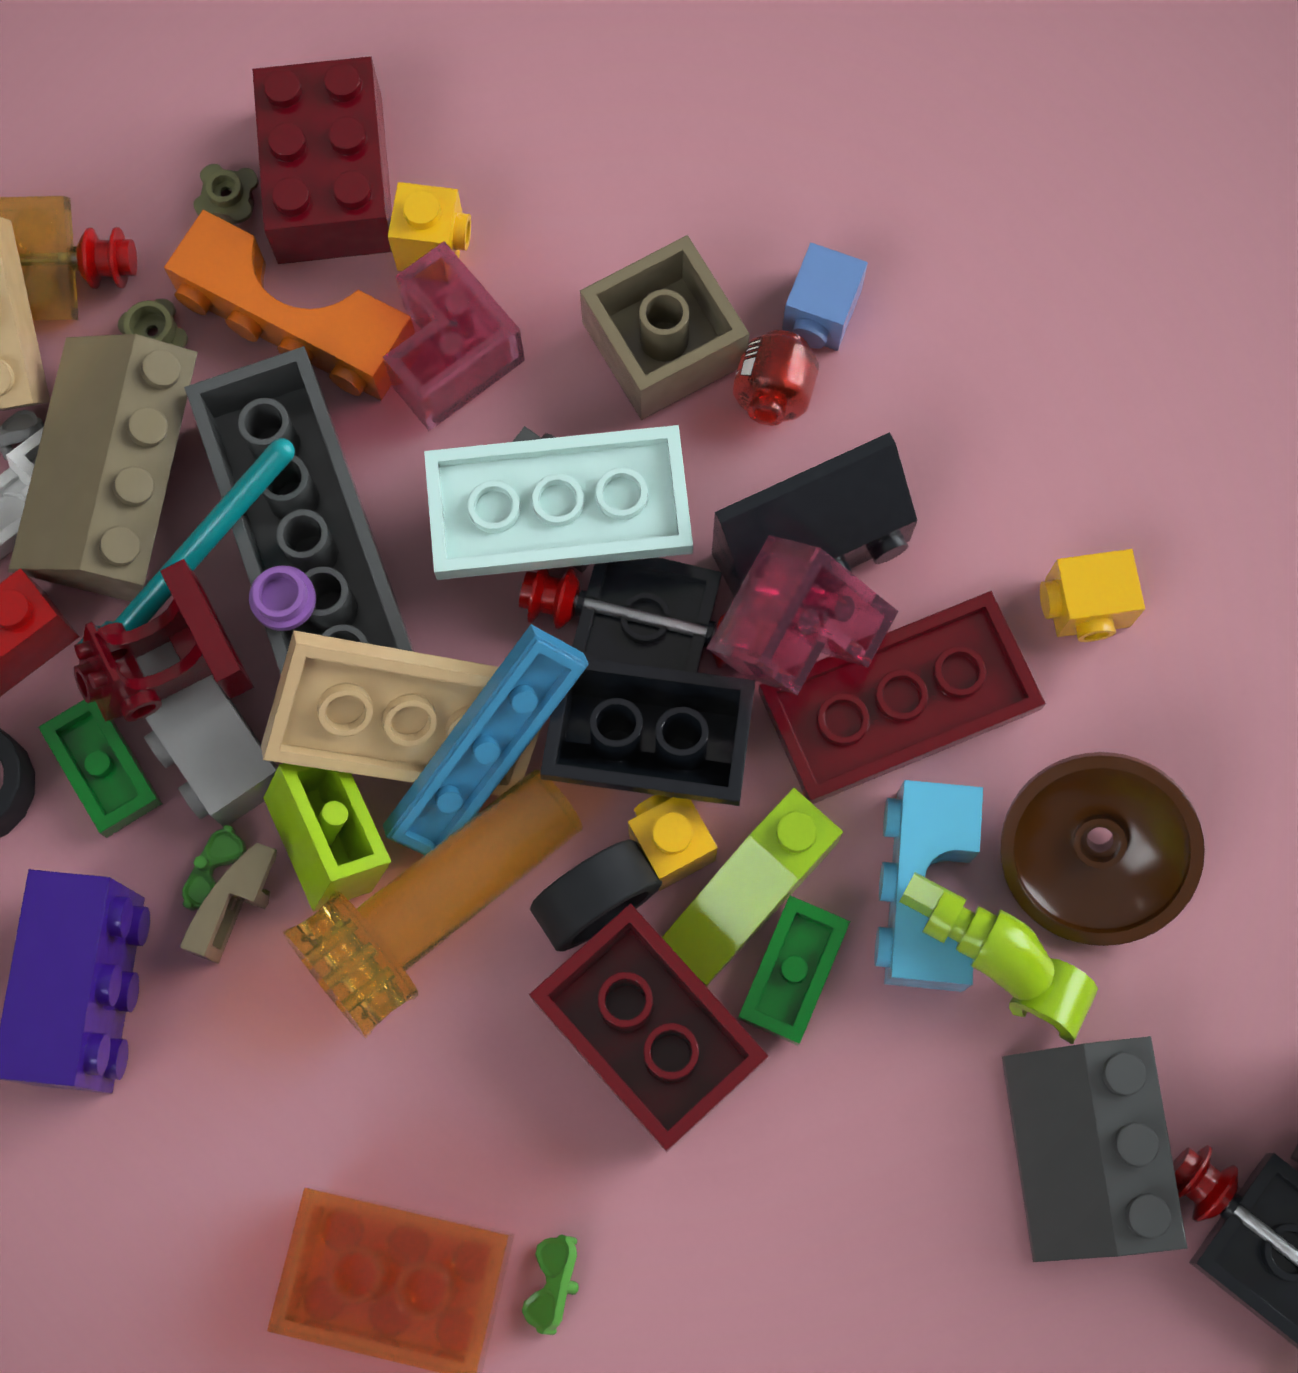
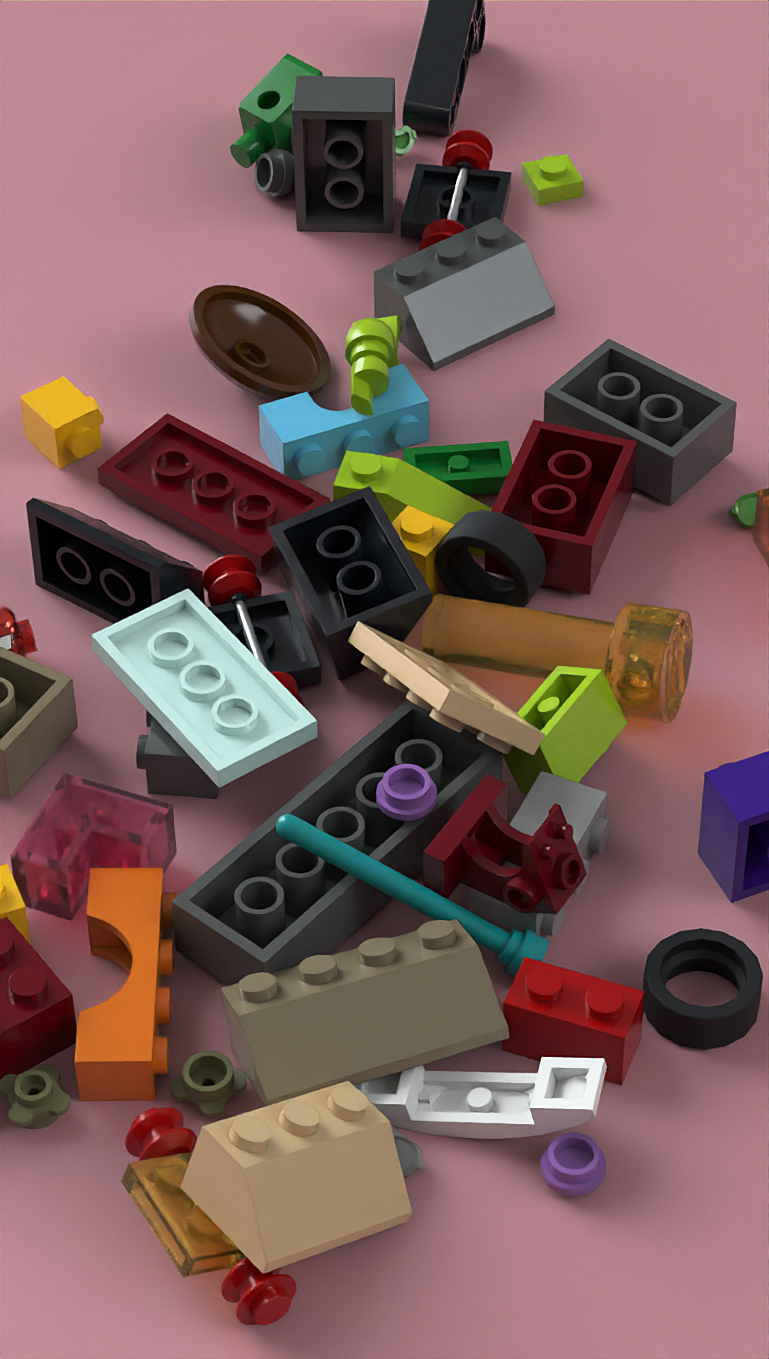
camera: 120 degrees left, 30 degrees down
(100, 767) = (619, 912): green plate -> none
(219, 911) = (665, 777): dark tan slope -> none
(221, 850) = (663, 817): bright green piece -> none
(486, 740) = (427, 645): dark azure tile -> none
(739, 1205) = (676, 421): none -> dark grey brick
(793, 610) = (212, 510): clear pink brick -> none

